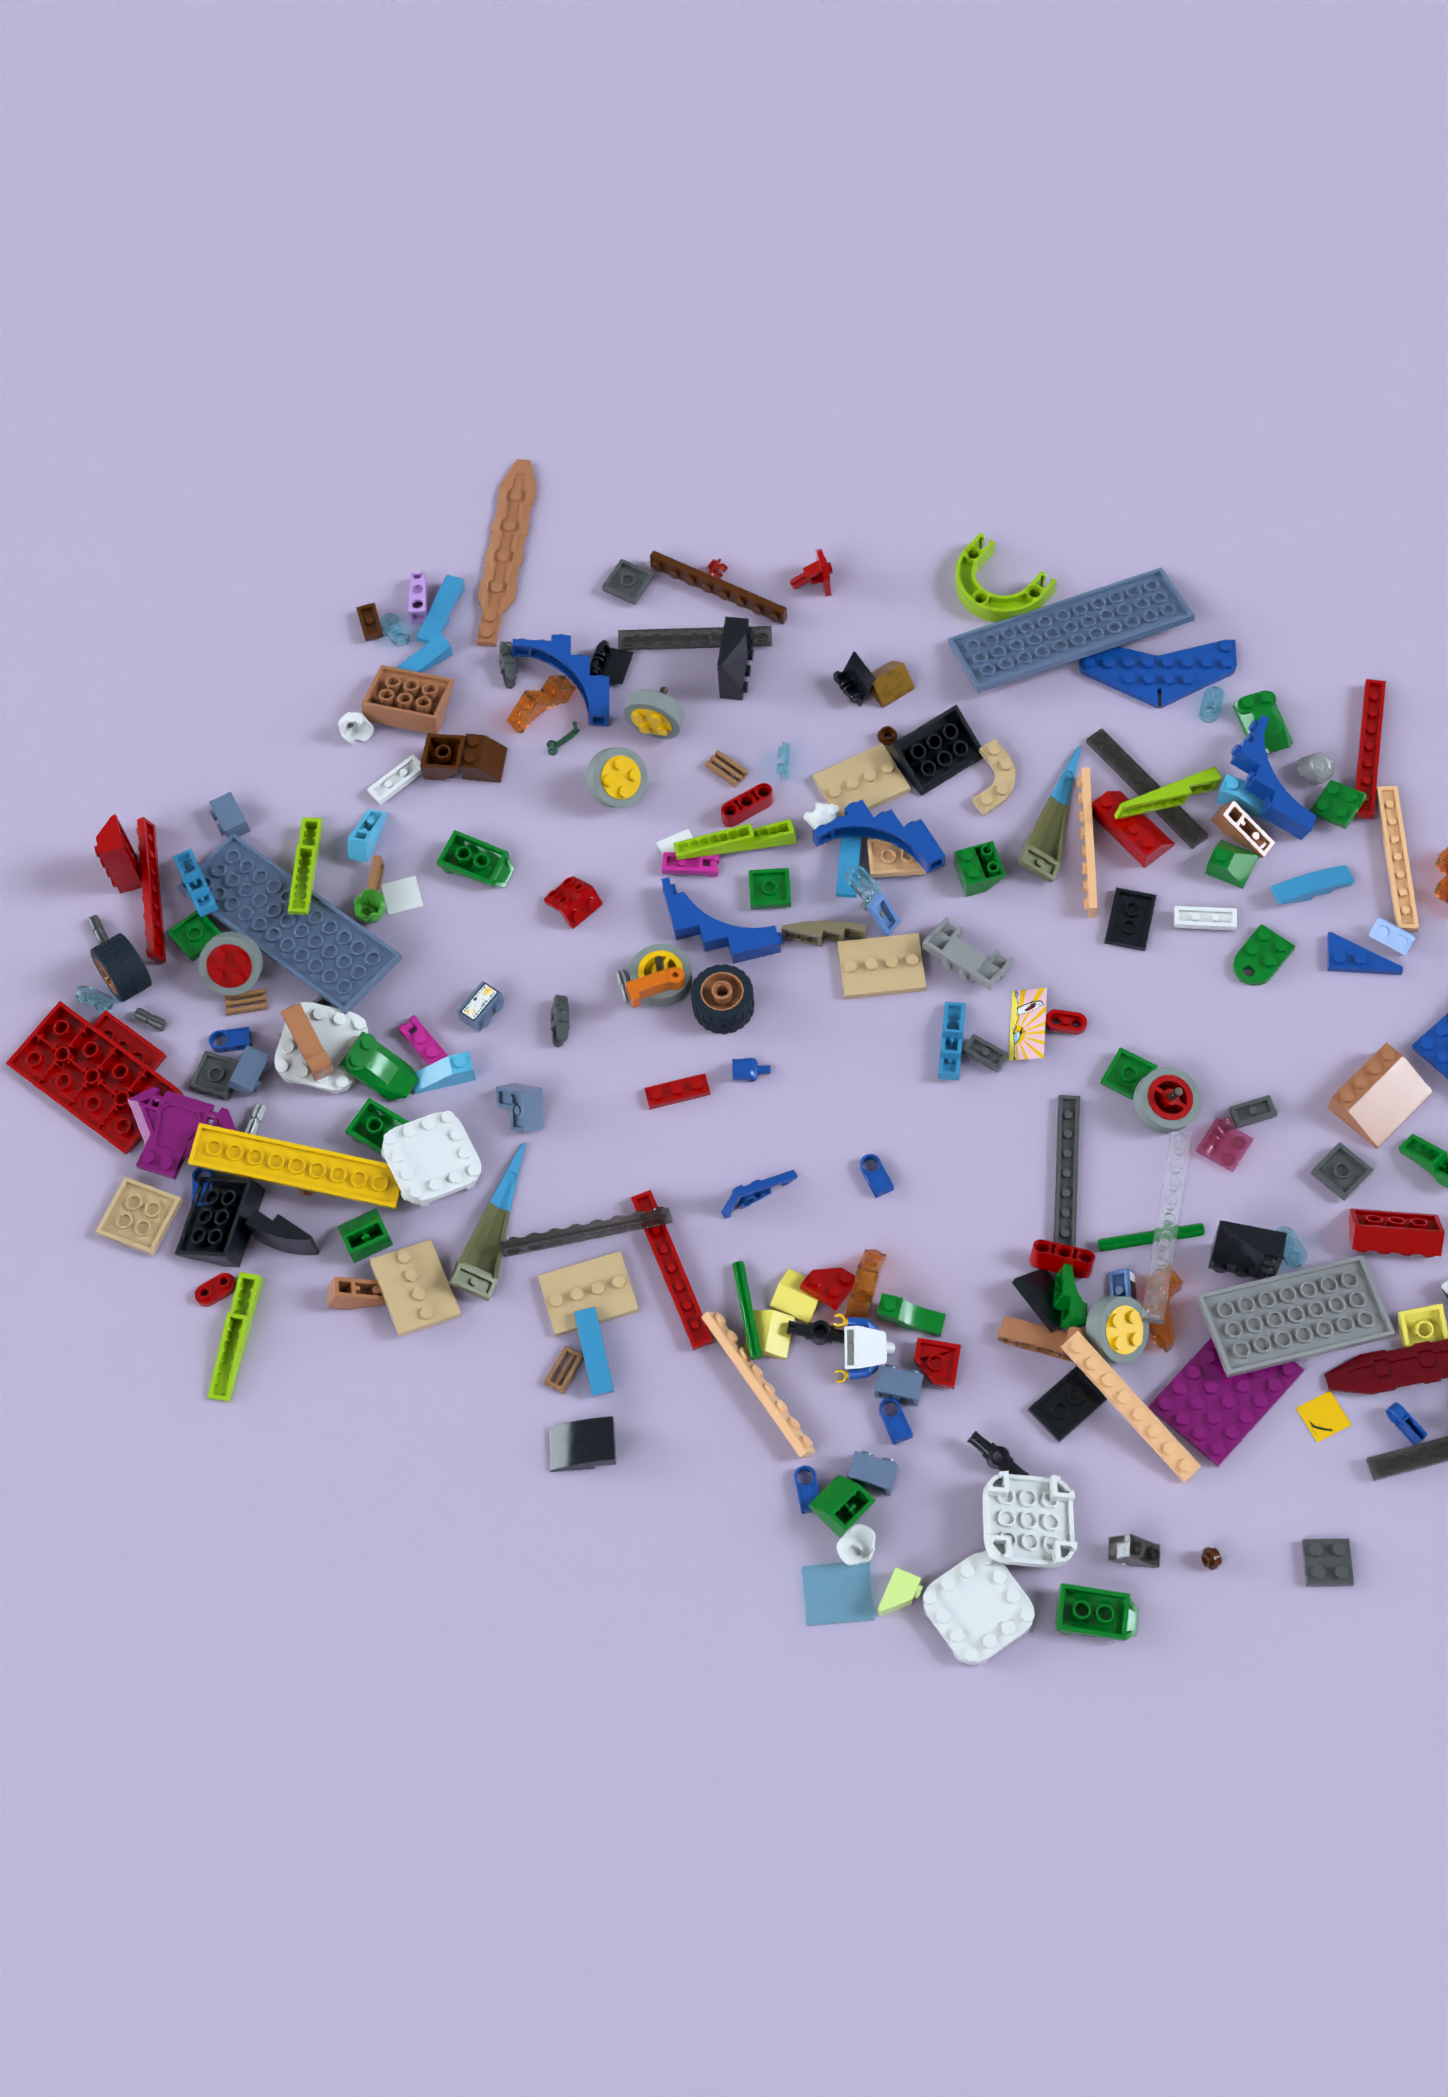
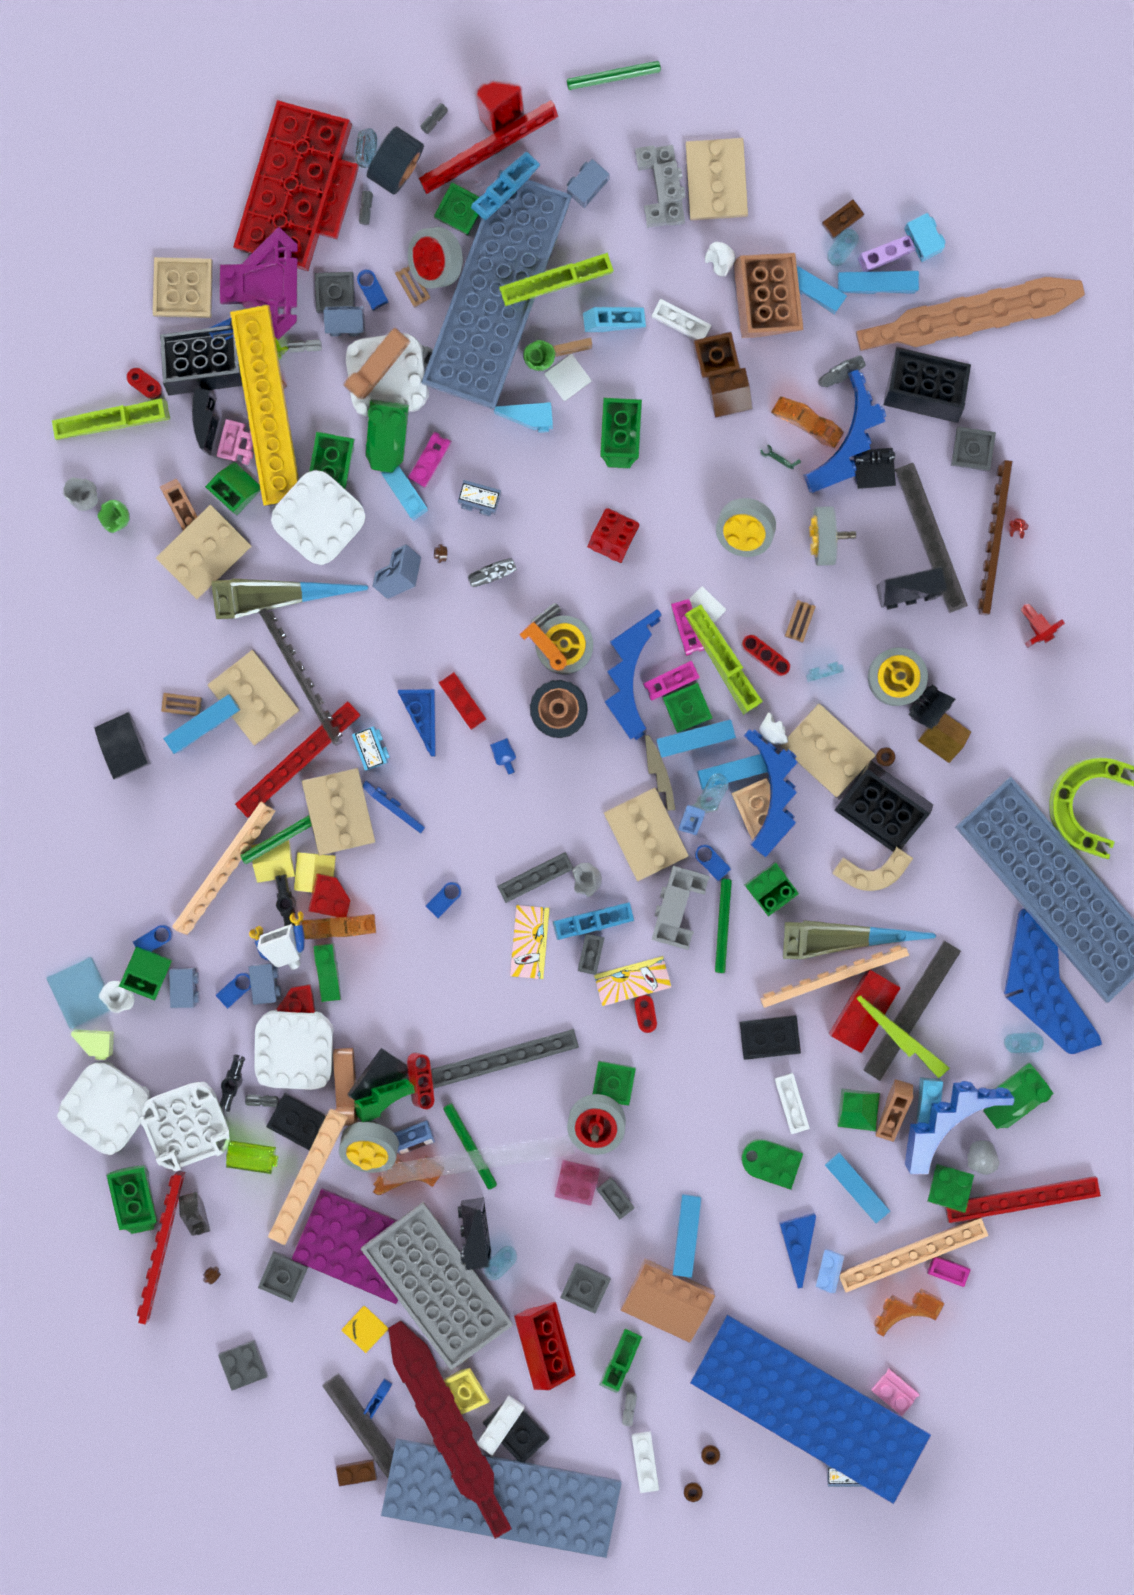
camera: 65 degrees right, 25 degrees up
(142, 766) = (613, 75): none -> axle
(266, 752) = (668, 190): none -> light grey bracket
(281, 712) = (716, 179): none -> tan plate
(298, 1388) = (80, 493): none -> light grey hair
(315, 1222) = (231, 440): none -> bright pink plate
(336, 1364) = (113, 516): none -> bright green hair
(418, 561) = (925, 237): none -> medium azure brick
(422, 937) = (532, 416): none -> medium azure slope
(520, 1060) = (440, 553): none -> reddish brown plate
(553, 599) = (927, 385): none -> black slope
(672, 1131) = (421, 708): none -> blue wing
(689, 1192) = (370, 748): none -> brick
(737, 893) = (672, 680): none -> dark pink plate
(742, 1246) = (338, 811): none -> tan plate
(803, 888) = (696, 738): none -> dark azure slope
(814, 700) = (897, 676): none -> wheel
(886, 1082) = (535, 877): none -> dark grey tile
(906, 1030) = (587, 879): none -> light grey hair
(935, 912) = (715, 865): none -> blue piece
(952, 1110) = (529, 942): none -> sticker
(983, 1375) = (293, 1050): none -> white plate
(1001, 925) = (723, 925): none -> green axle
(1027, 1438) = (257, 1100): none -> dark grey piece
(1088, 1463) = (251, 1157): none -> clear neon green brick
(1168, 1607) = (162, 1239): none -> red plate
(1236, 1480) = (283, 1277): none -> dark grey plate
(1315, 1054) = (686, 1236): none -> dark azure slope
(1424, 833) = (949, 1271): none -> dark pink tile

